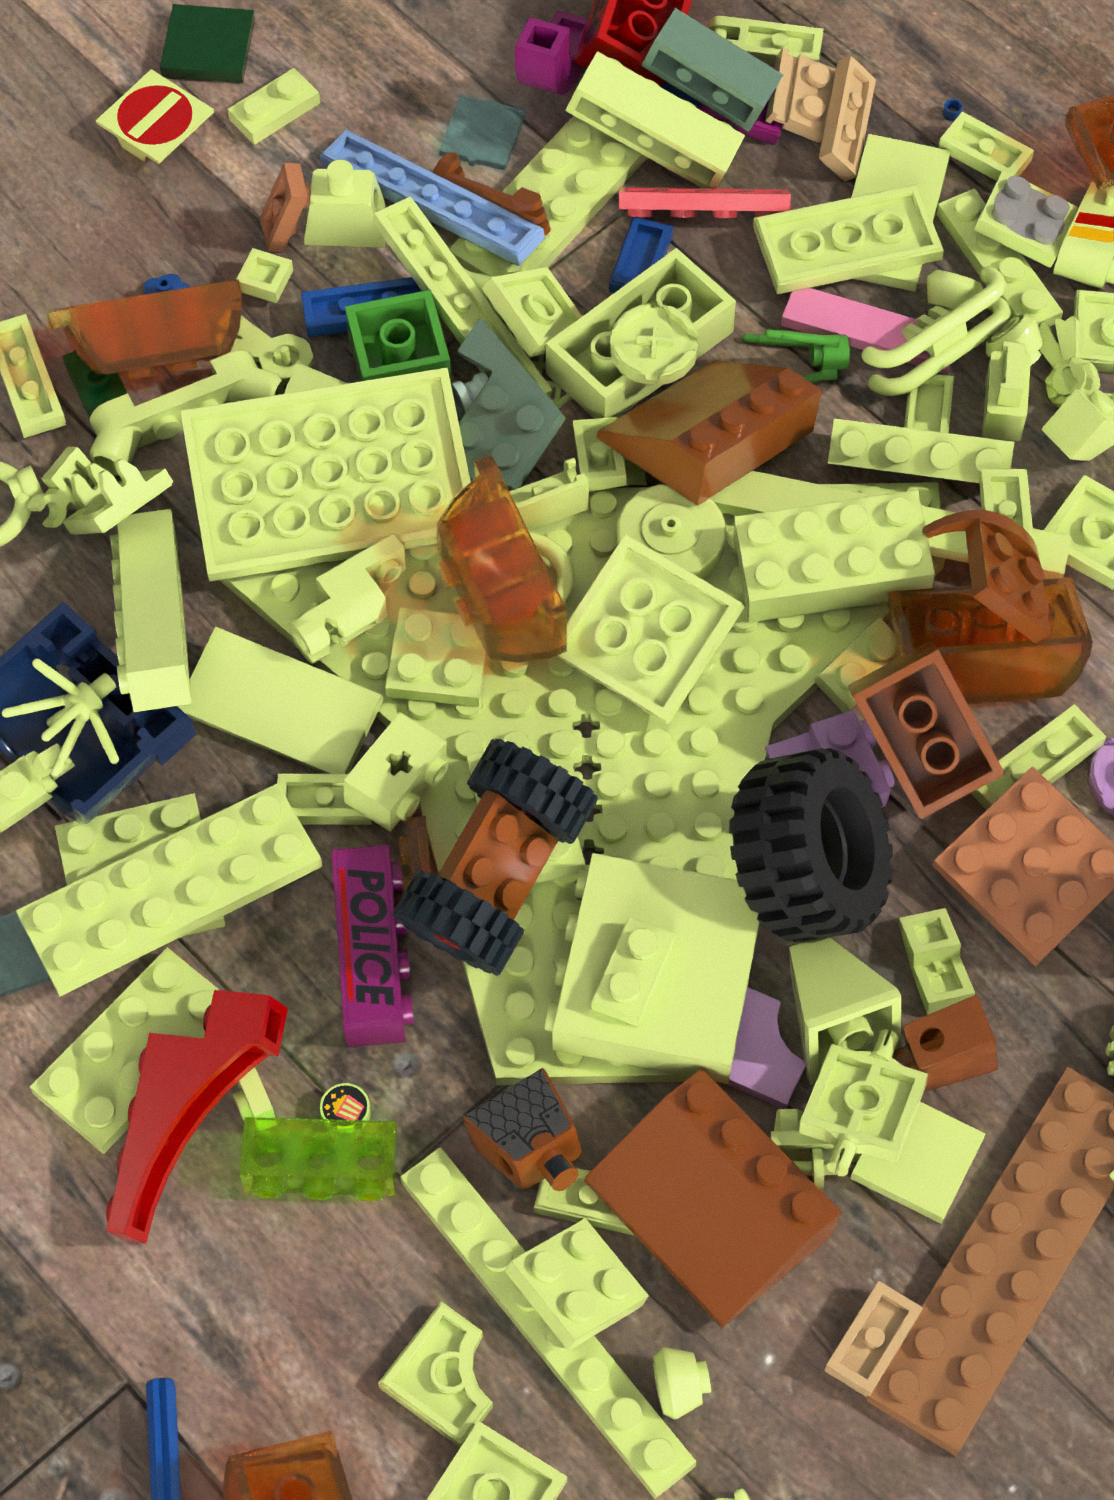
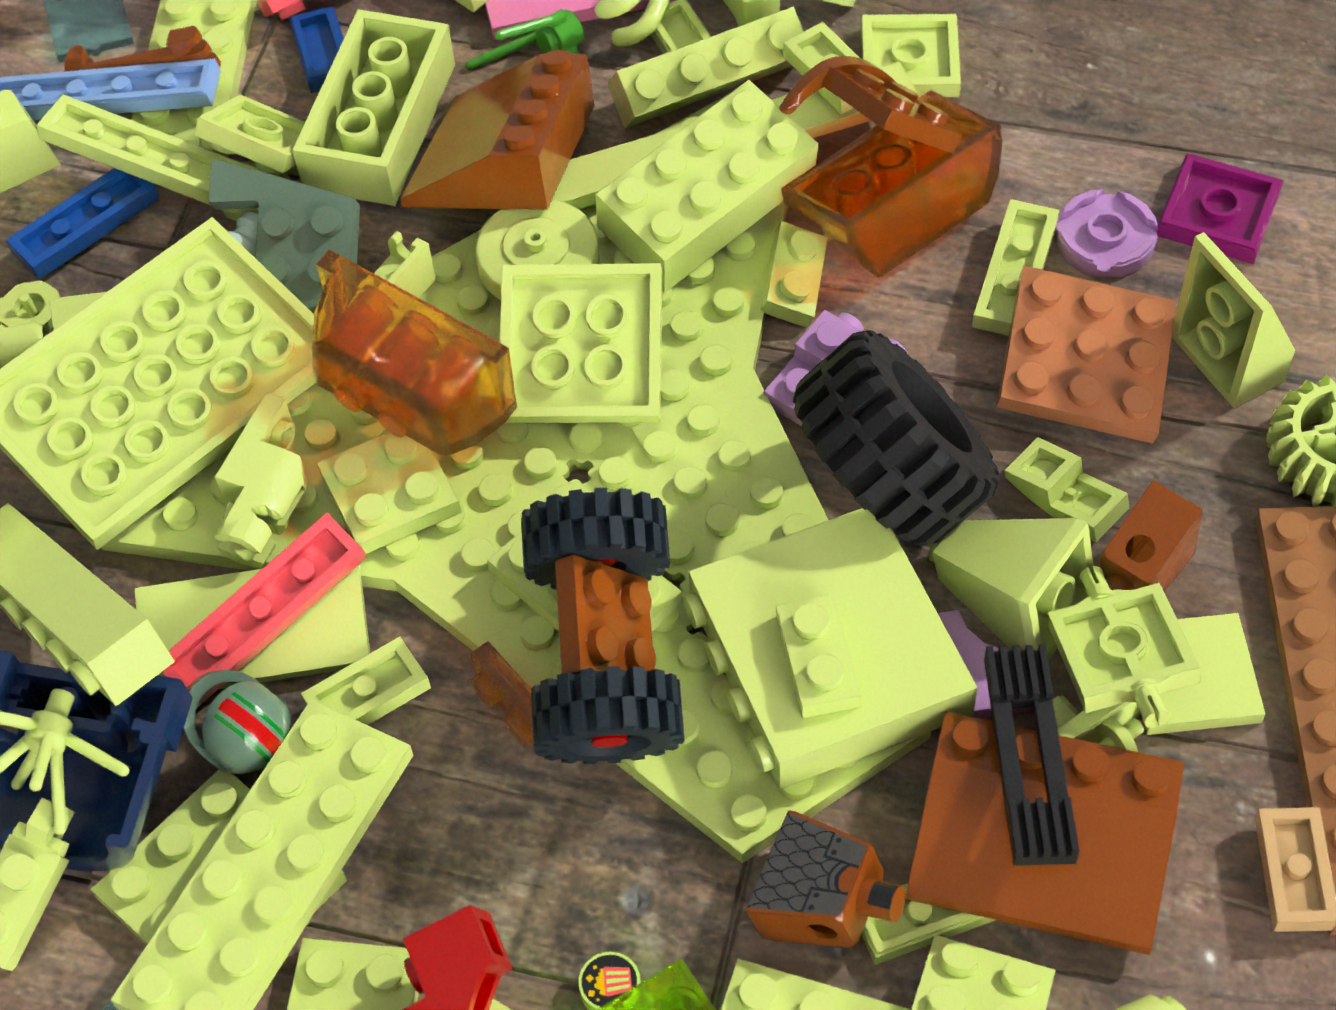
camera: 30 degrees left, 5 degrees down
(220, 771) = (241, 723): none -> sand green helmet
(287, 696) = (267, 603): none -> coral plate
(368, 946) = (519, 804): magenta brick -> none
(396, 336) = (132, 223): bright green brick -> none
(396, 772) = (427, 617): yellowish green brick -> none
(599, 462) = (427, 224): yellowish green slope -> none
(654, 344) = (400, 96): yellowish green tile -> none
(693, 1192) = (1039, 830): none -> black container
(926, 729) = (912, 281): dark orange brick -> none

